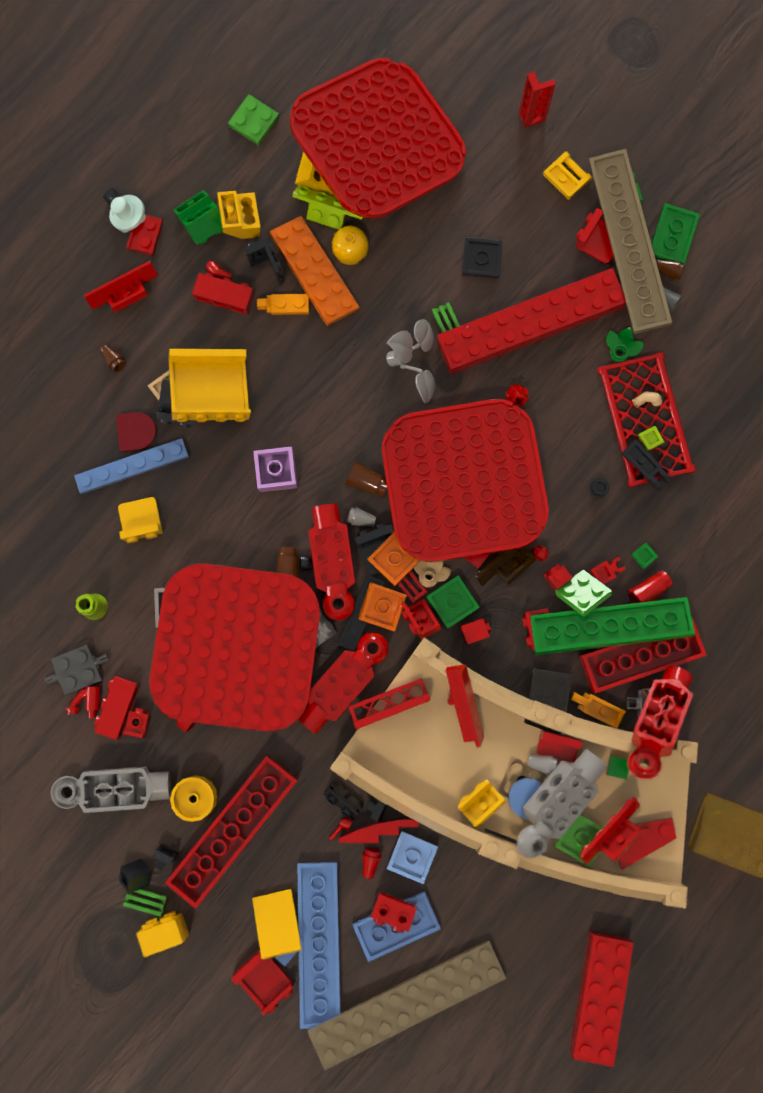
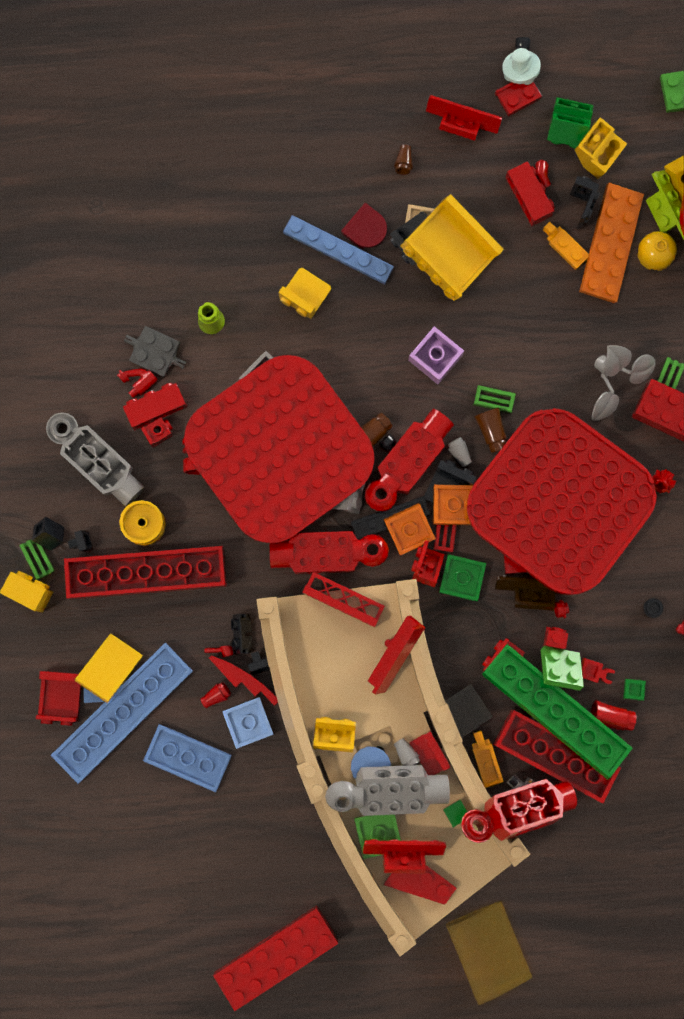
camera: 45 degrees right, 0 degrees up
(333, 466) = (492, 406): none -> bright green tile
(393, 912) = (196, 745): red brick -> none
(406, 1004) = (139, 817): dark tan plate -> none
(434, 569) = (473, 540): tan plate -> none
(475, 631) = (457, 615): red brick -> none

